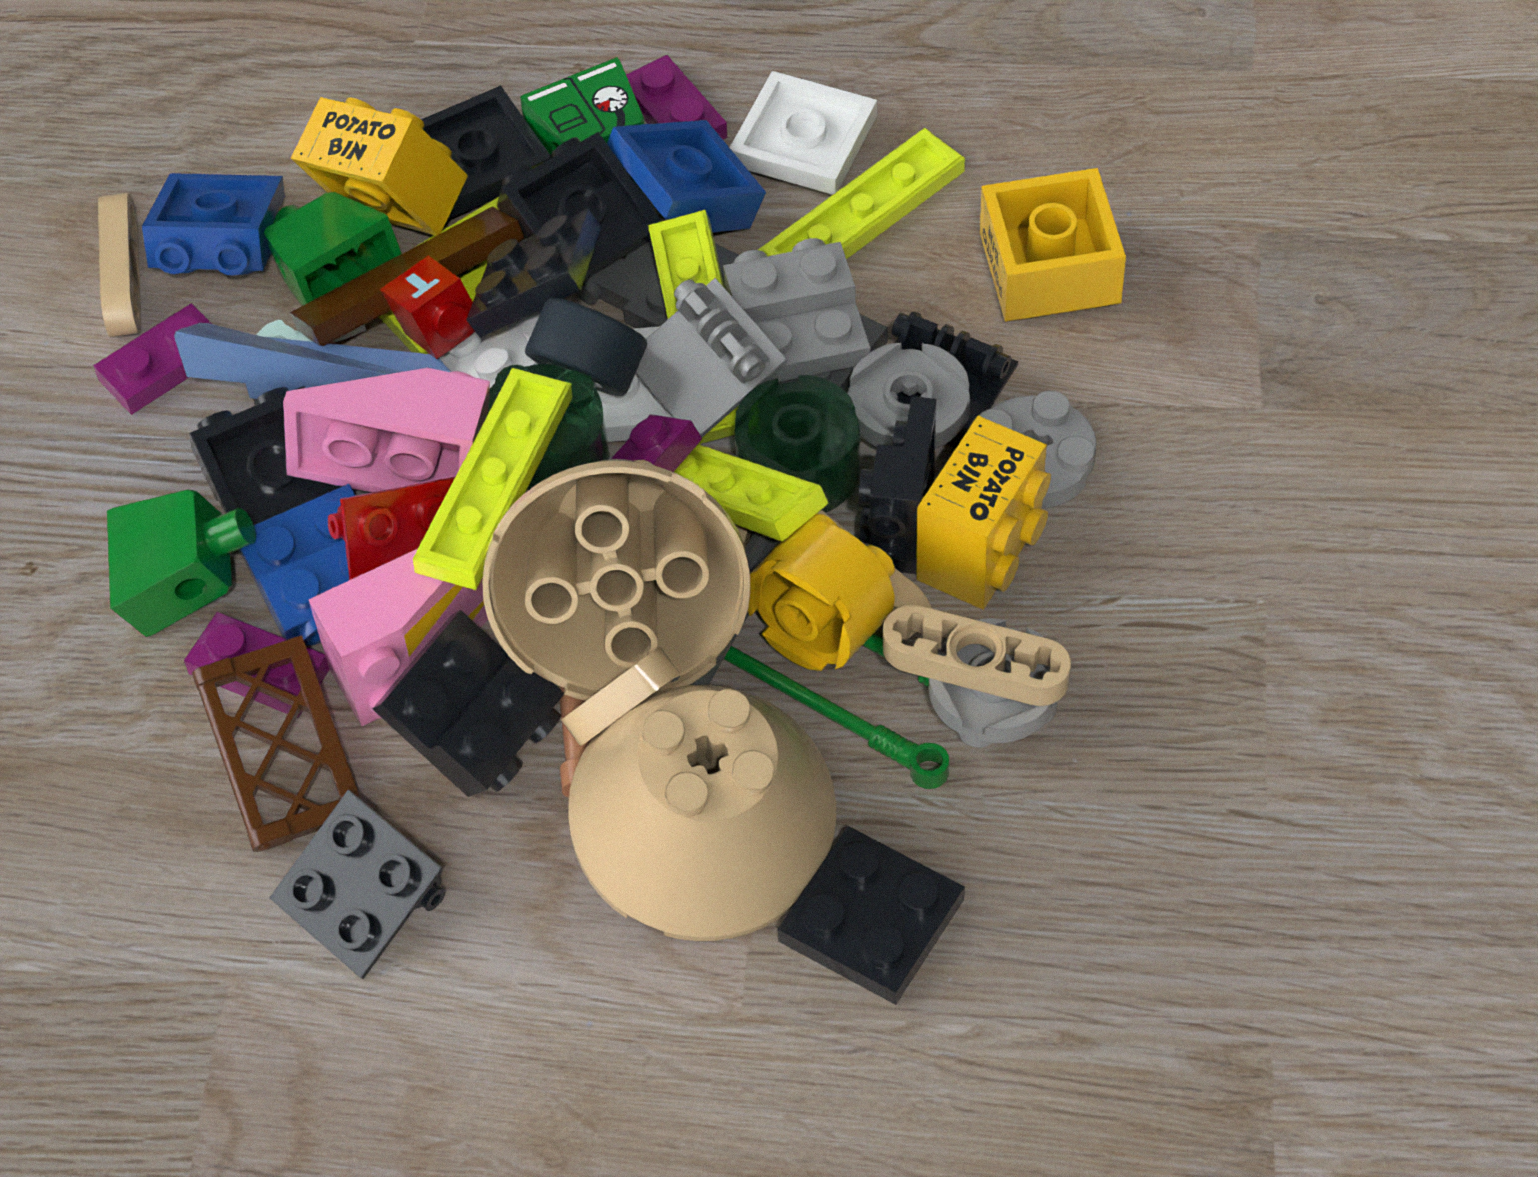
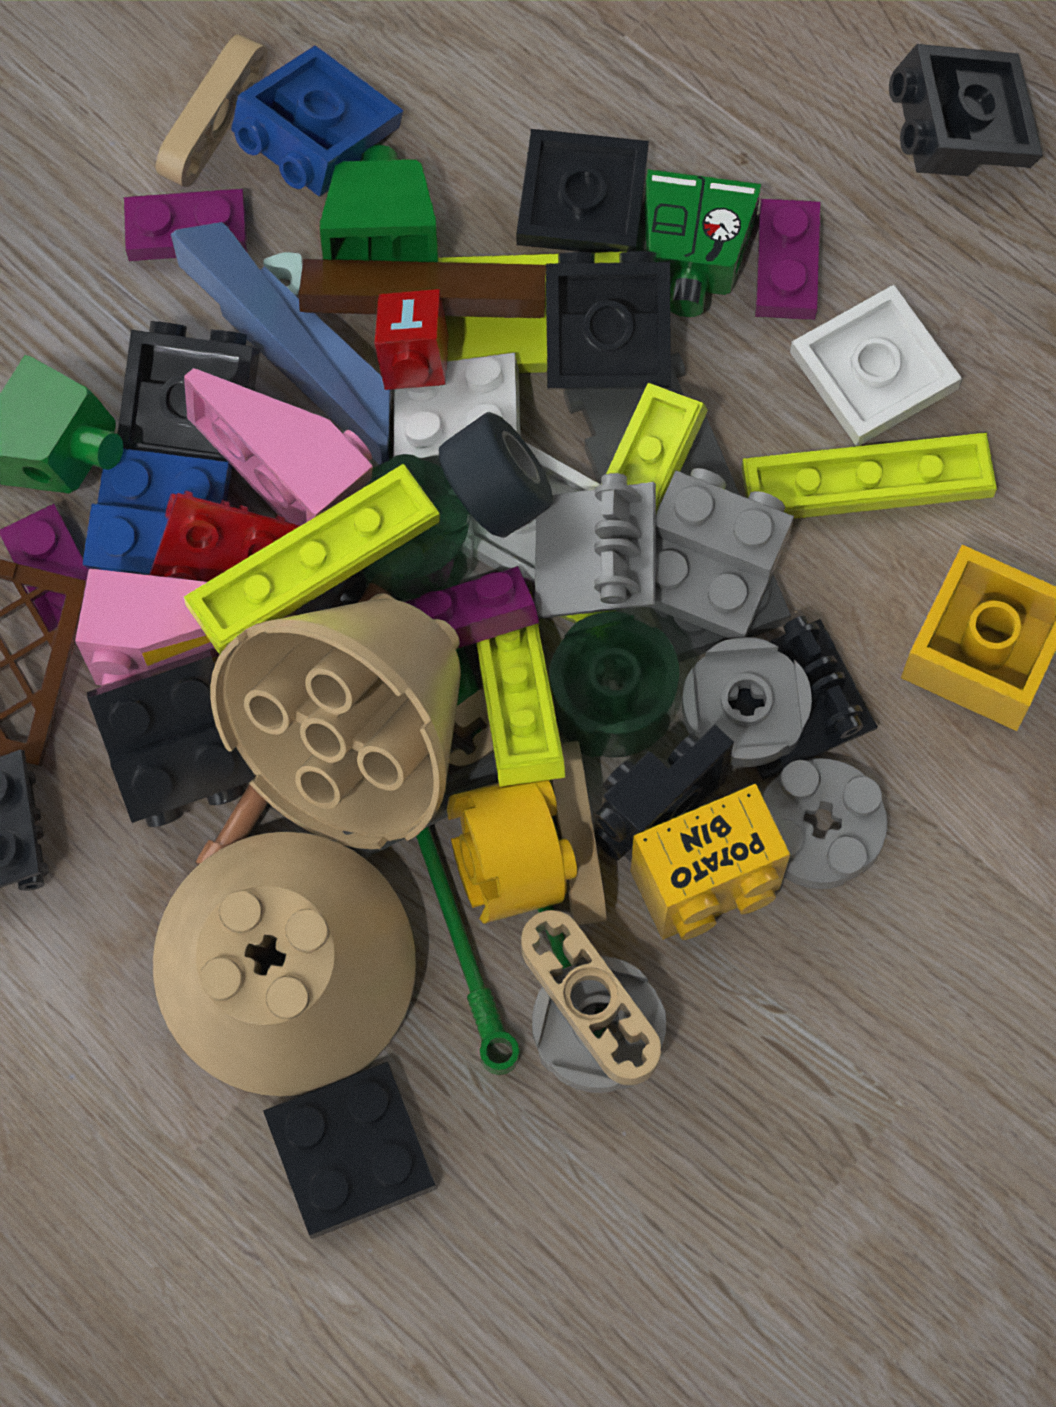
camera: 35 degrees right, 15 degrees up
(381, 162) = (471, 166): yellow brick -> none
(533, 270) = (507, 371): black plate -> none
(620, 696) = (280, 825): tan beam -> none
(688, 171) = (729, 347): blue plate -> none

